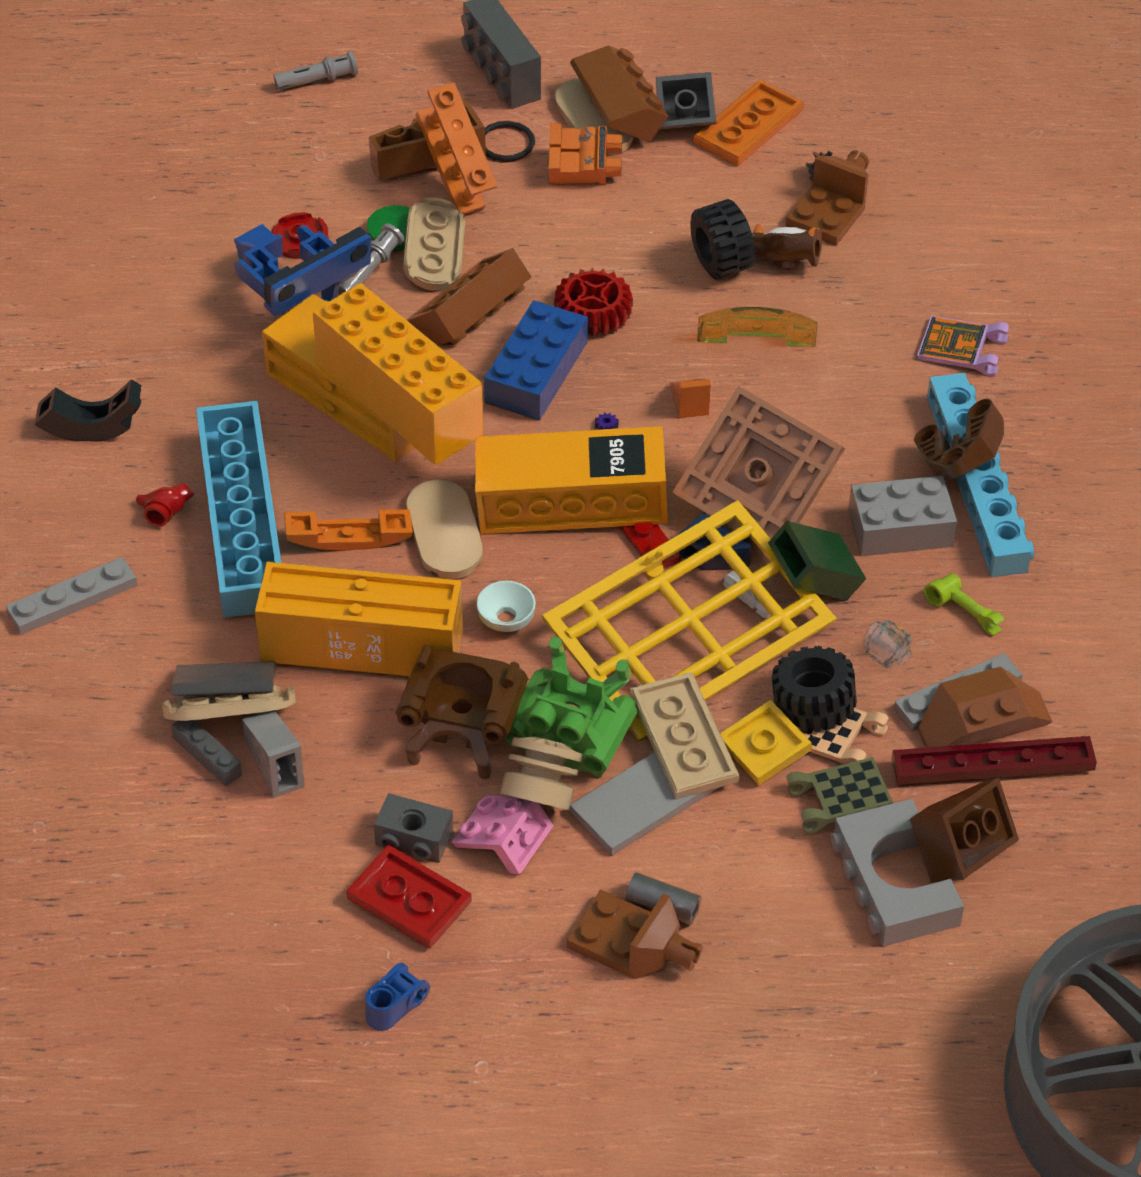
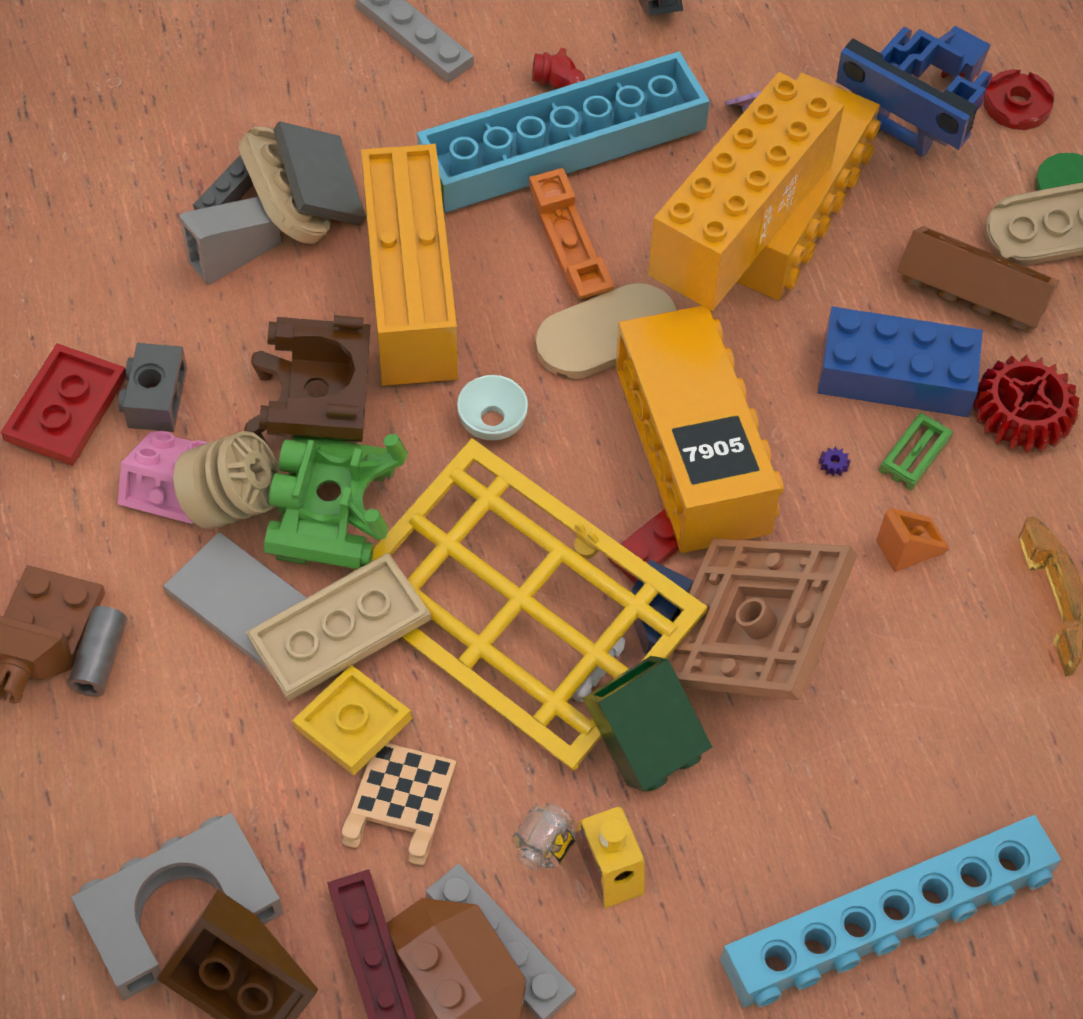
camera: 75 degrees right, 10 degrees up
(244, 389) = (743, 101): none -> lavender plant
(380, 253) = (1009, 168): light grey pin -> none
(607, 377) = (901, 472): none -> bright green tile
(815, 688) = (437, 785): black tyre -> none
(840, 791) = (290, 825): olive flag -> none
(902, 515) = (776, 822): light grey brick -> none
(911, 604) = (607, 851): none -> yellow torso
(948, 589) = (669, 902): lime brick -> none
(979, 445) = (893, 868): reddish brown connector -> none

